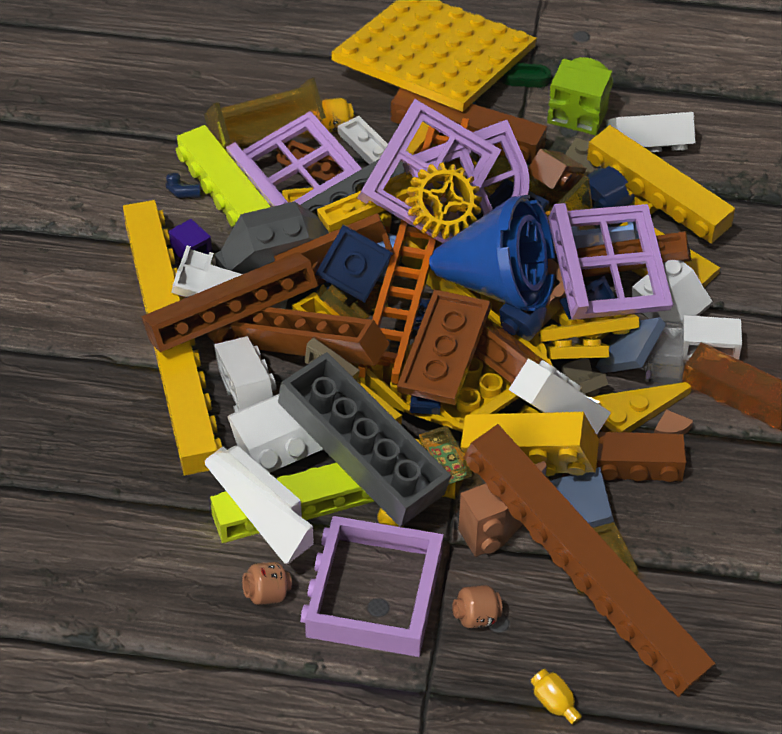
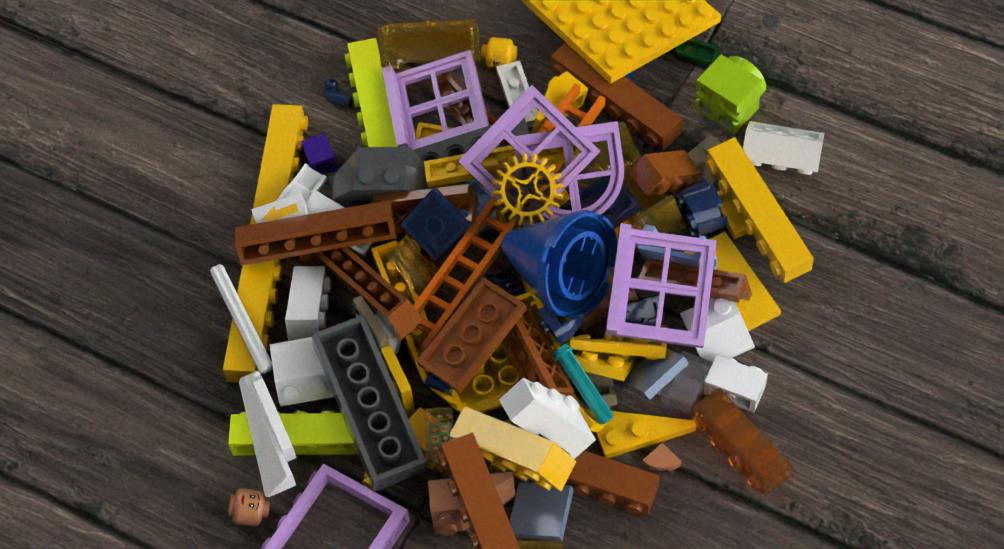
camera: 25 degrees right, 10 degrees up
(182, 288) = (281, 209): none -> white tile
(182, 403) = (241, 319): none -> white axle
(571, 368) = (583, 384): none -> teal axle

